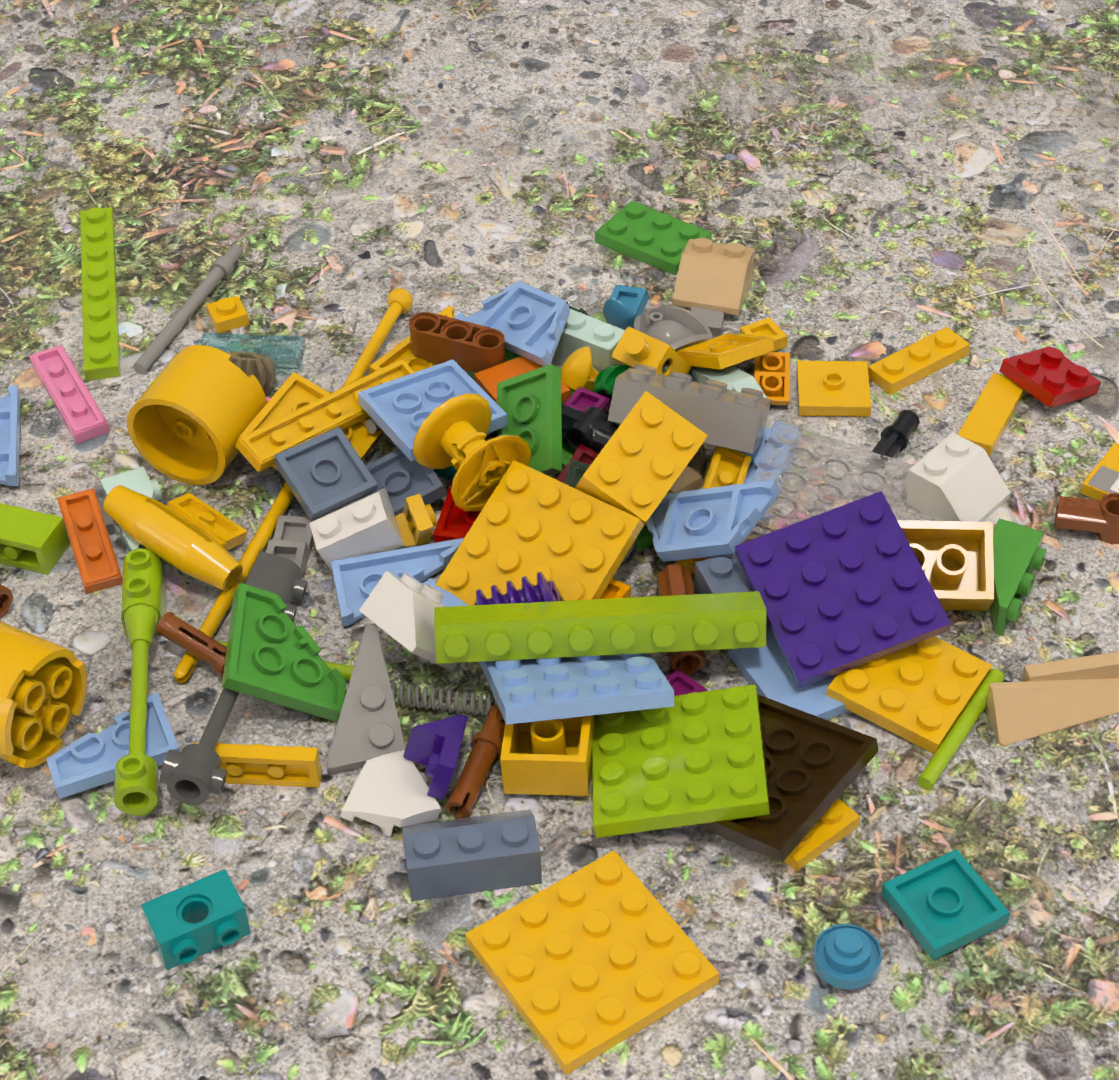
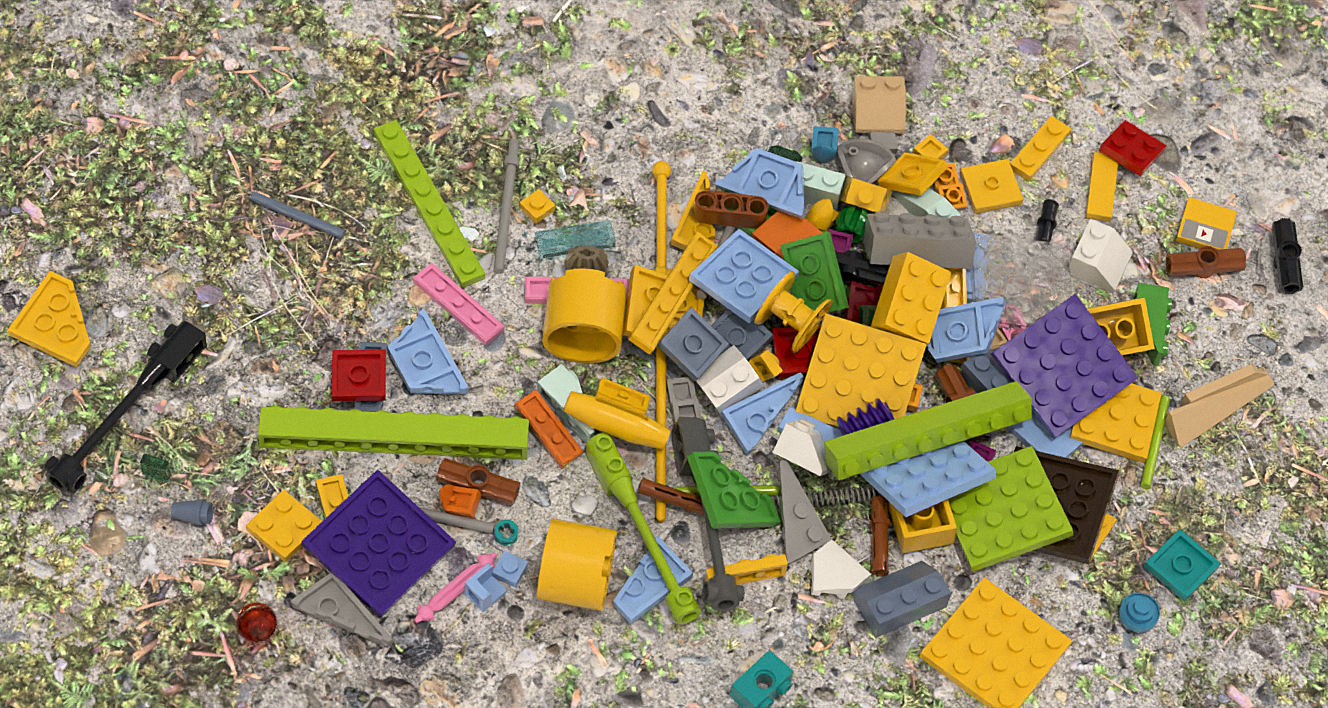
camera: 25 degrees left, 15 degrees up
(438, 748) = (860, 536): dark purple slope -> none
(649, 236) = (815, 68): bright green plate -> none

